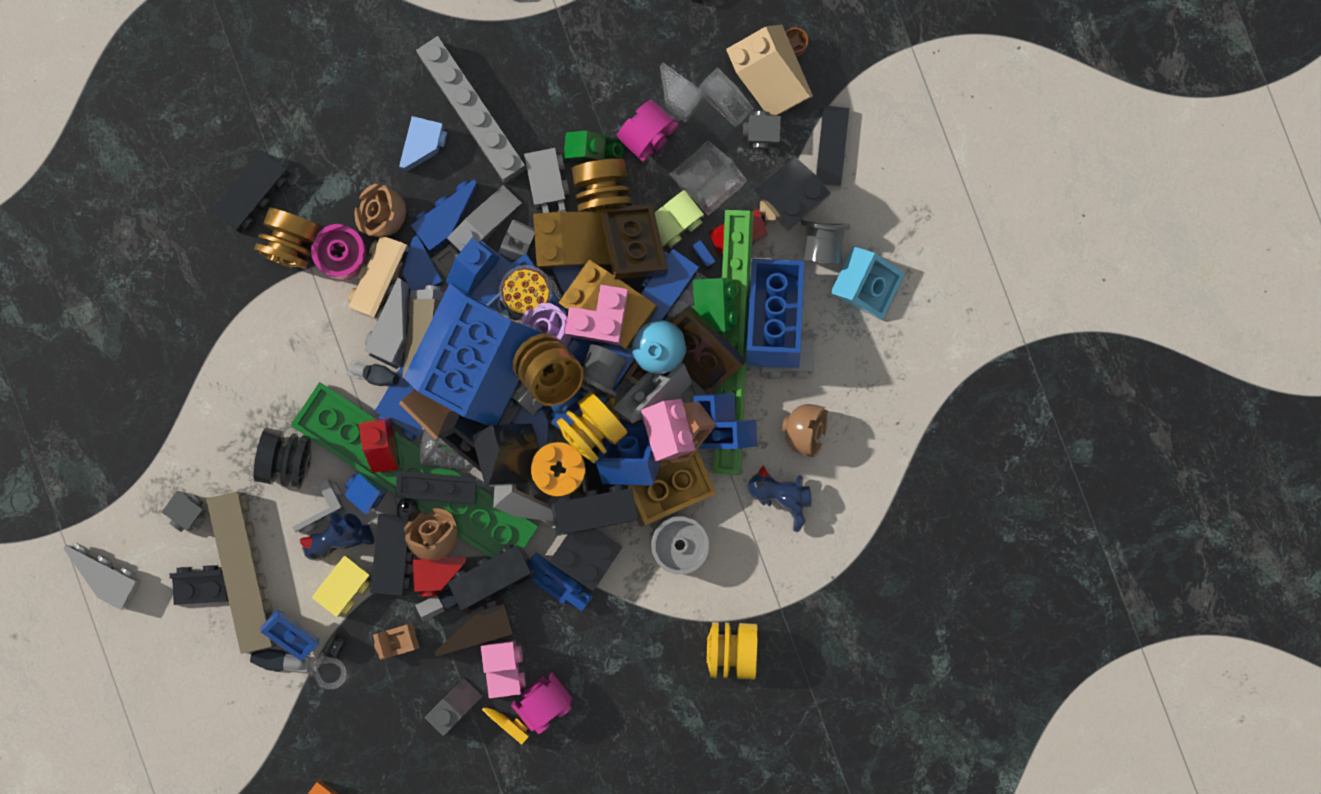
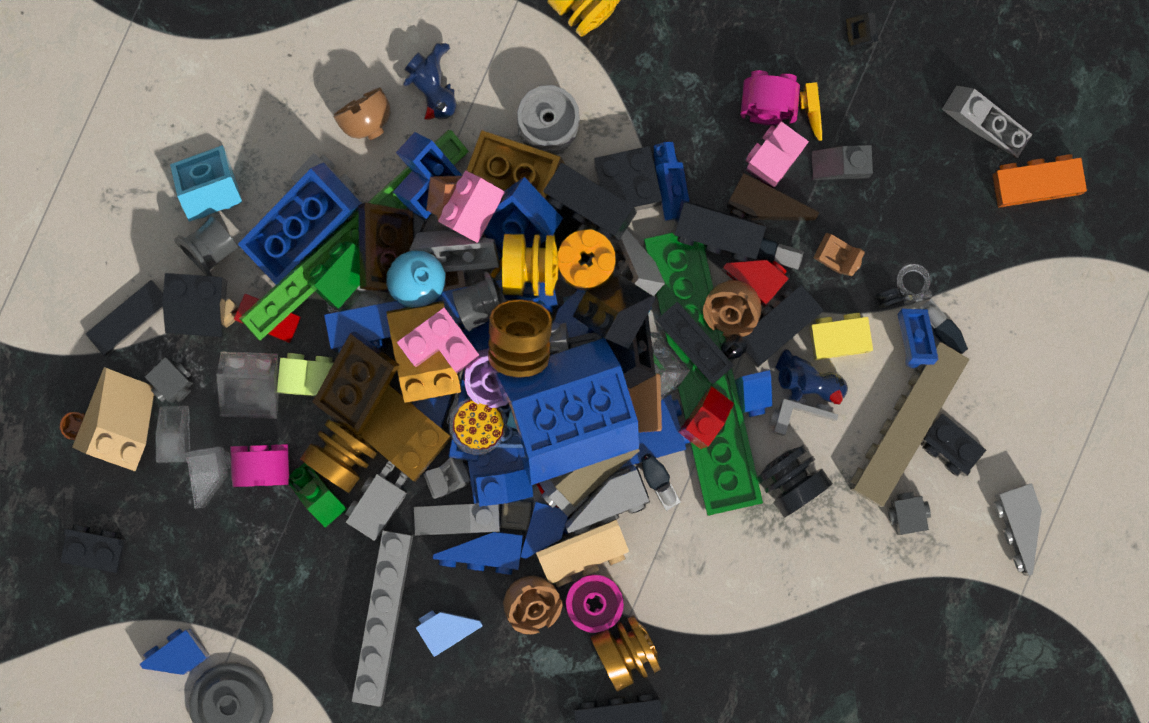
camera: 135 degrees left, 0 degrees up
(703, 255) = (311, 327): blue tile -> none

